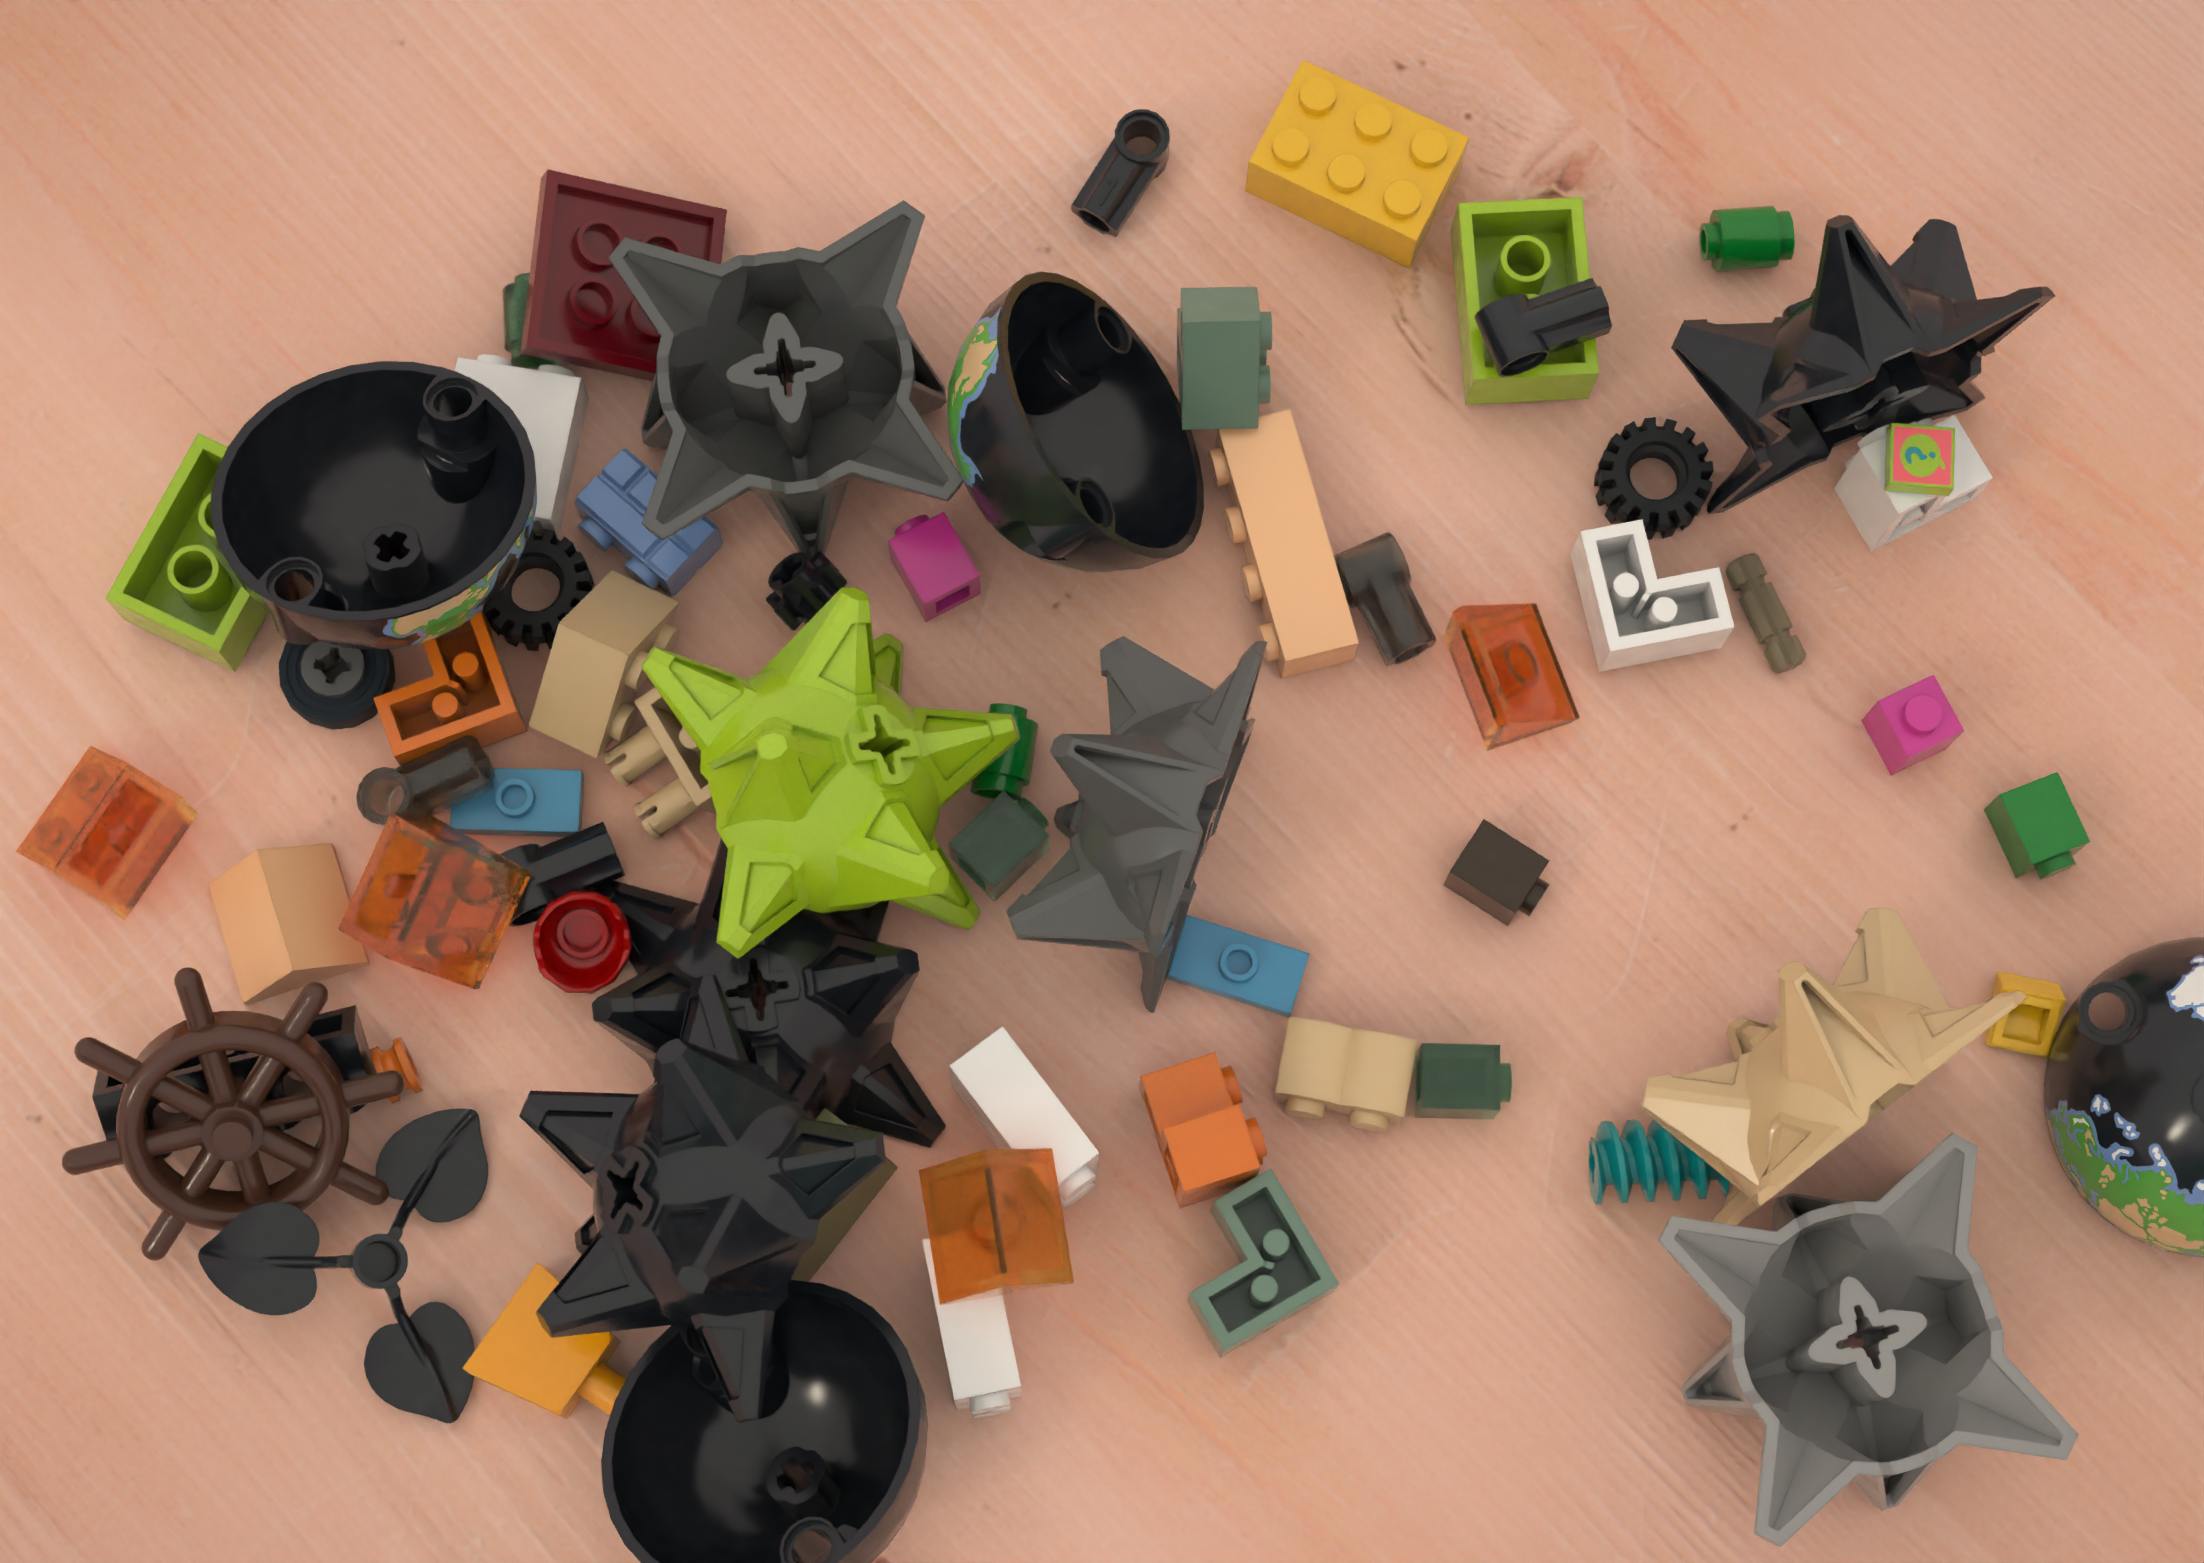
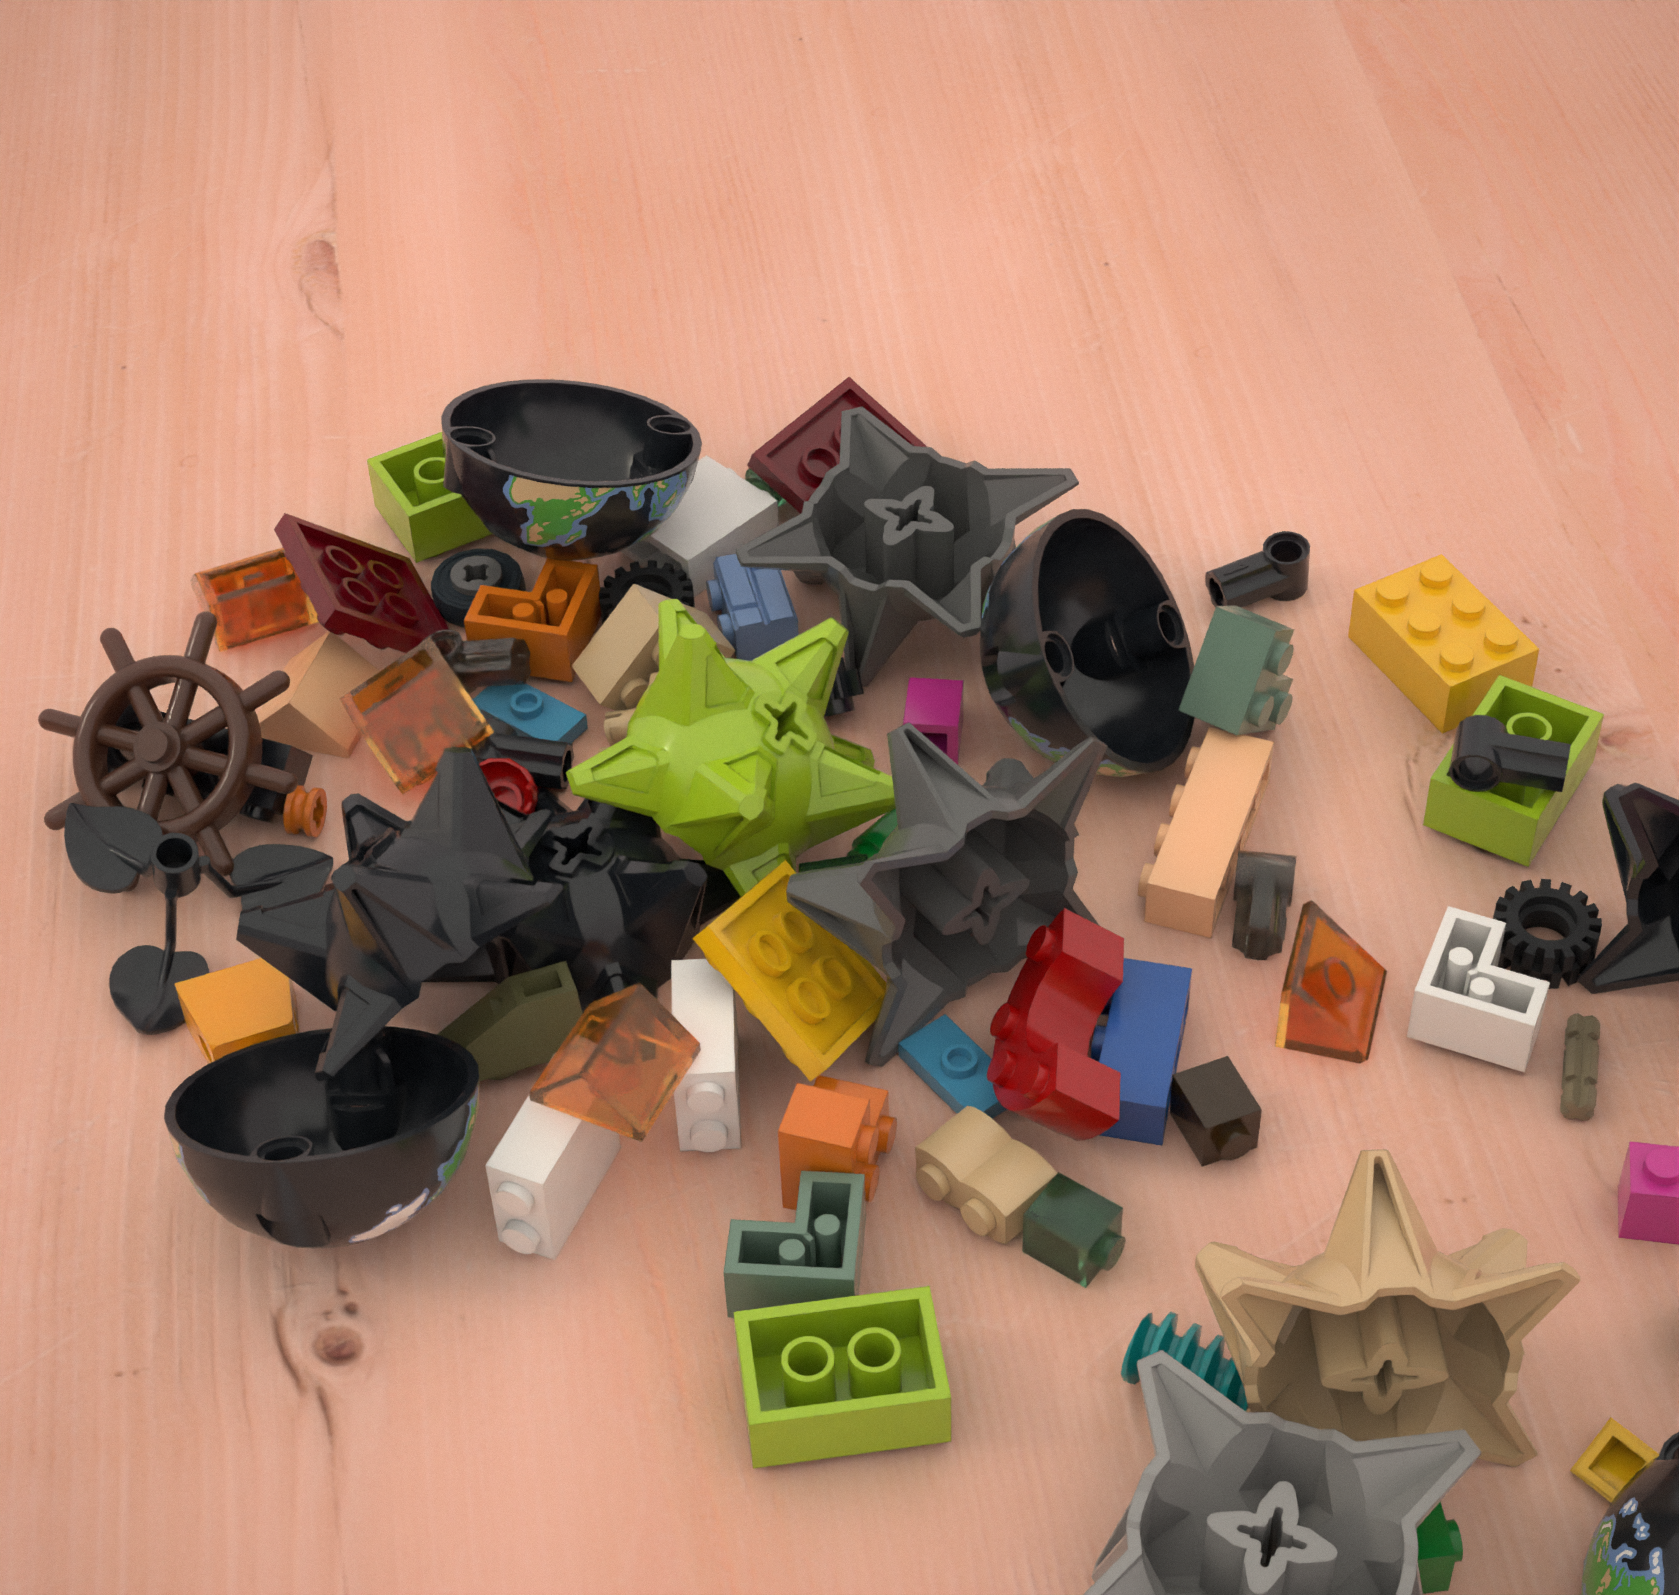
camera: 40 degrees right, 30 degrees down
(247, 773) = (359, 586): none -> dark red plate
(1052, 1002) = (793, 974): none -> yellow plate
(1313, 909) = (1047, 1029): none -> red brick
(1377, 1368) = (842, 1377): none -> lime brick
(1387, 846) = (1144, 1045): none -> blue brick

